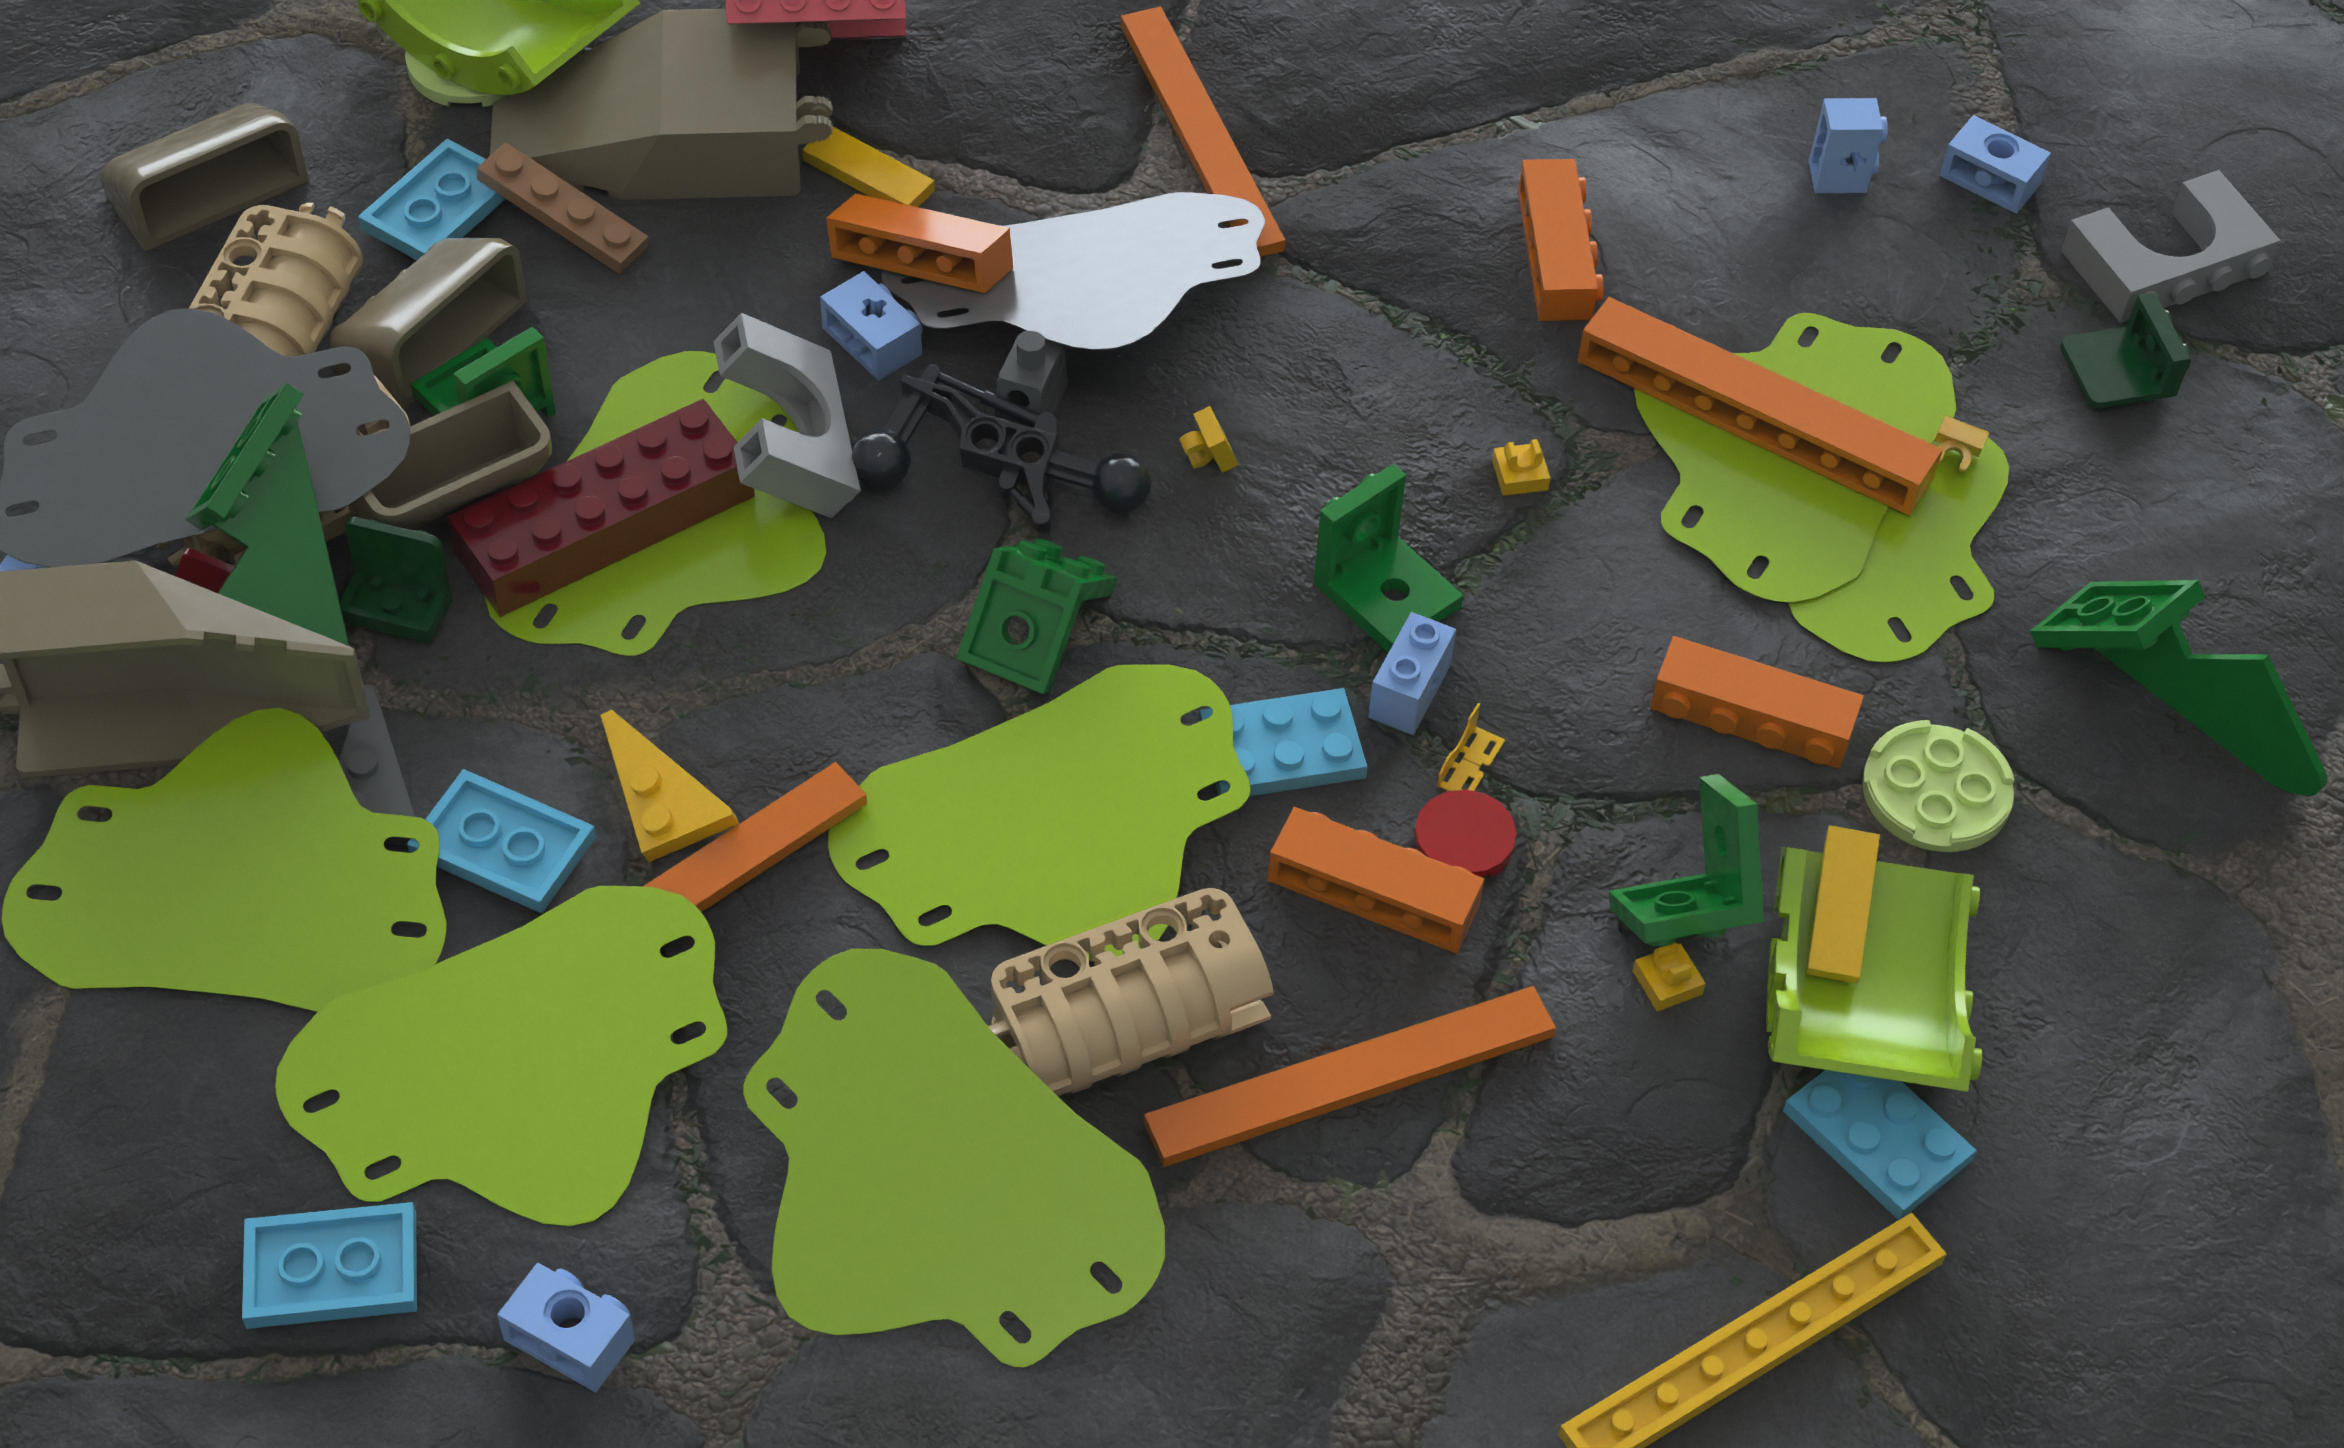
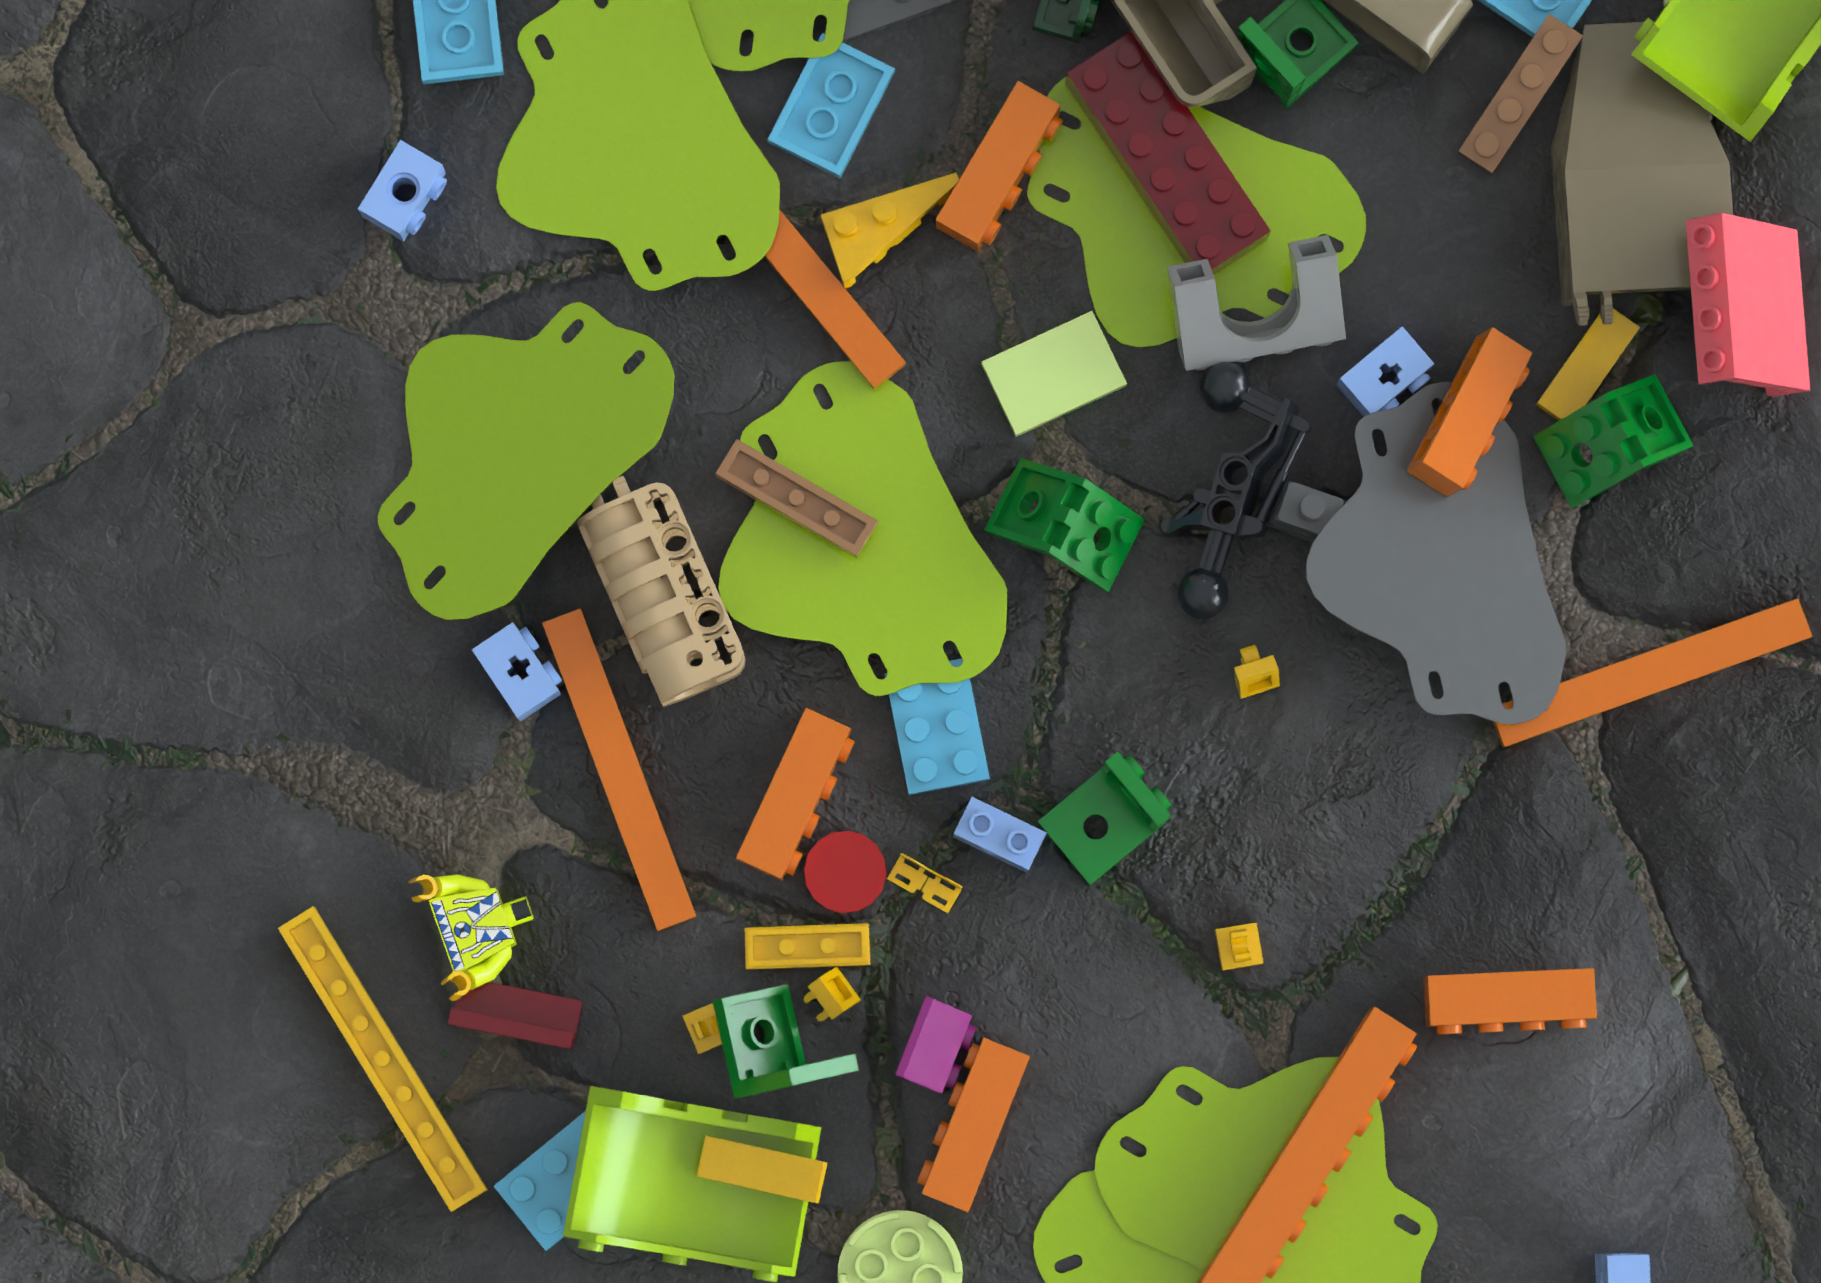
camera: 90 degrees right, 30 degrees up
(598, 667) = (998, 167): none -> orange brick
(855, 627) = (1053, 373): none -> yellowish green tile
(945, 126) = (1622, 429): none -> green bracket
(1004, 870) = (796, 498): none -> medium nougat plate
(1229, 1183) = (523, 695): none -> light blue brick
(1559, 877) = (807, 946): none -> yellow tile
(1576, 1229) = (473, 927): none -> torso
(1617, 841) = (832, 993): none -> yellow tile
(1666, 740) = (934, 1046): none -> magenta slope
(1677, 1190) = (518, 1014): none -> dark red panel

